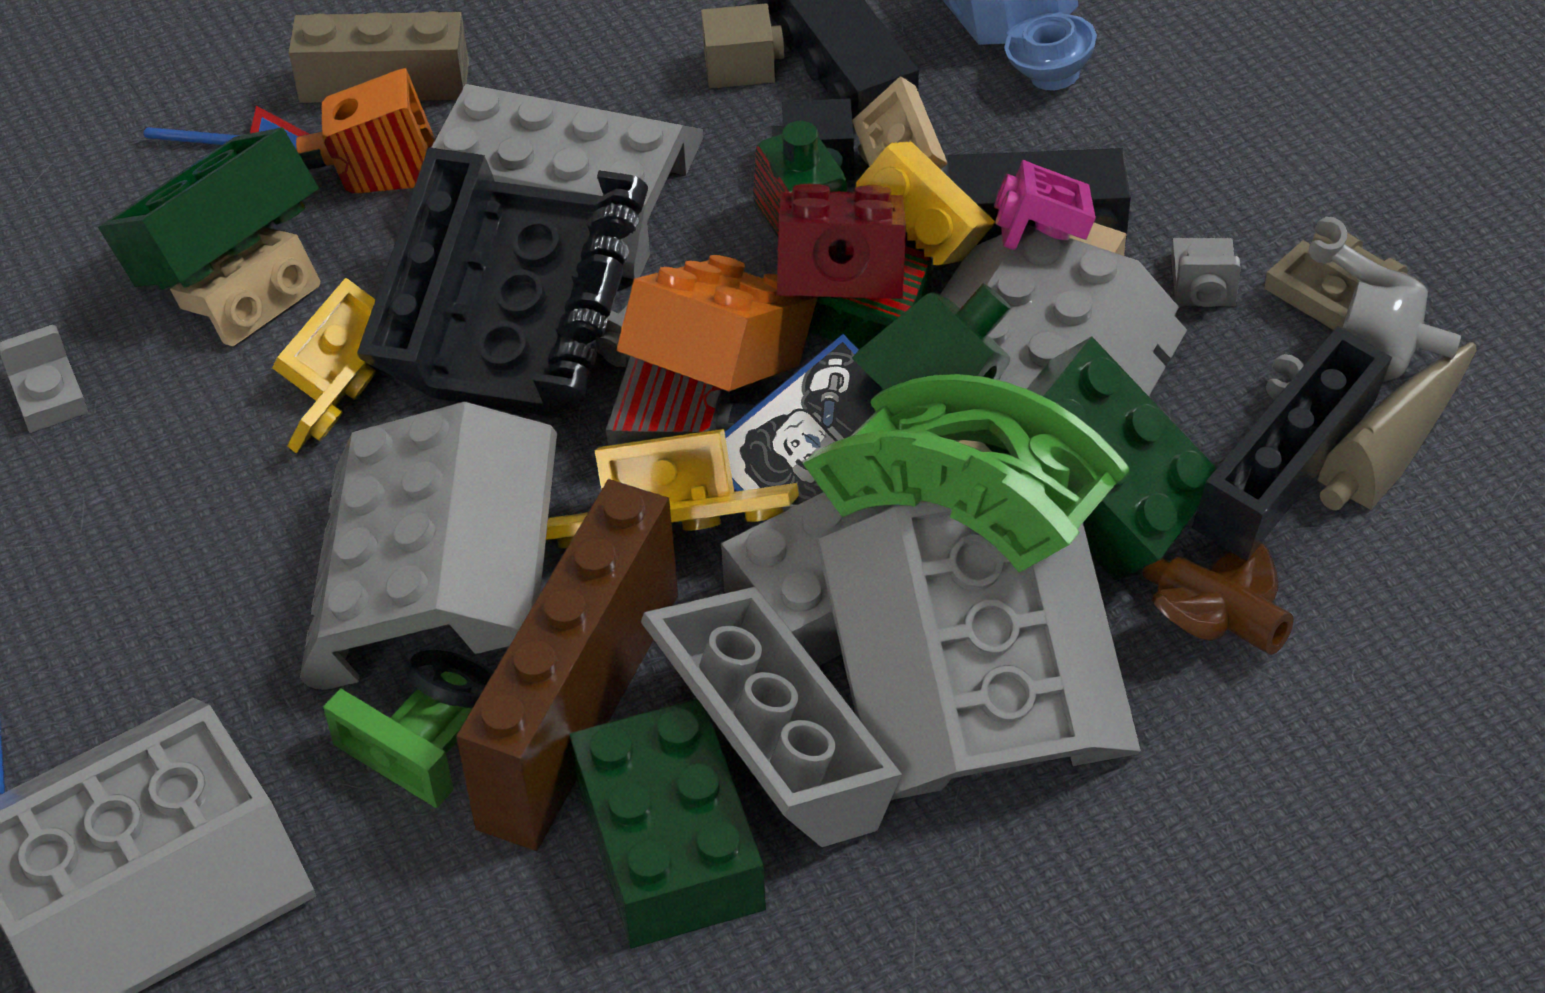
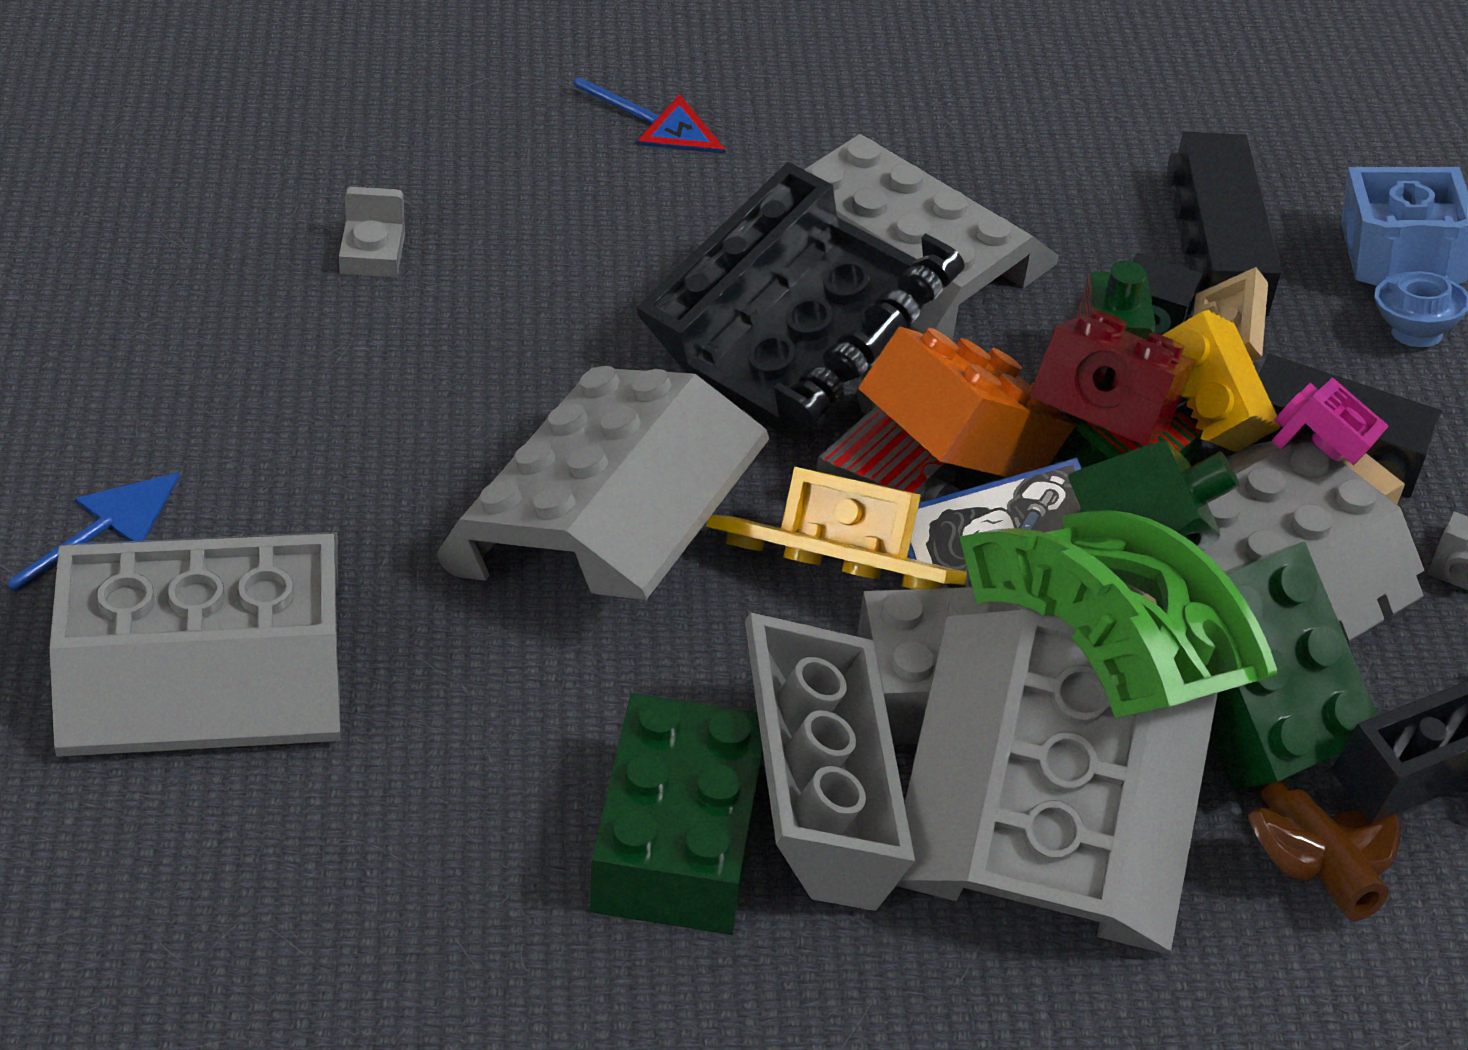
camera: 20 degrees right, 5 degrees down
(210, 210) = (584, 153): dark green brick -> none
(251, 285) = (588, 228): tan bracket -> none
(325, 360) = (609, 313): yellow bracket -> none
(350, 49) = (802, 90): dark tan brick -> none
(371, 135) = (754, 141): orange torso -> none
(415, 739) = (516, 644): bright green piece -> none
(568, 664) = (661, 631): reddish brown brick -> none
(740, 45) = (1129, 198): dark tan brick -> none

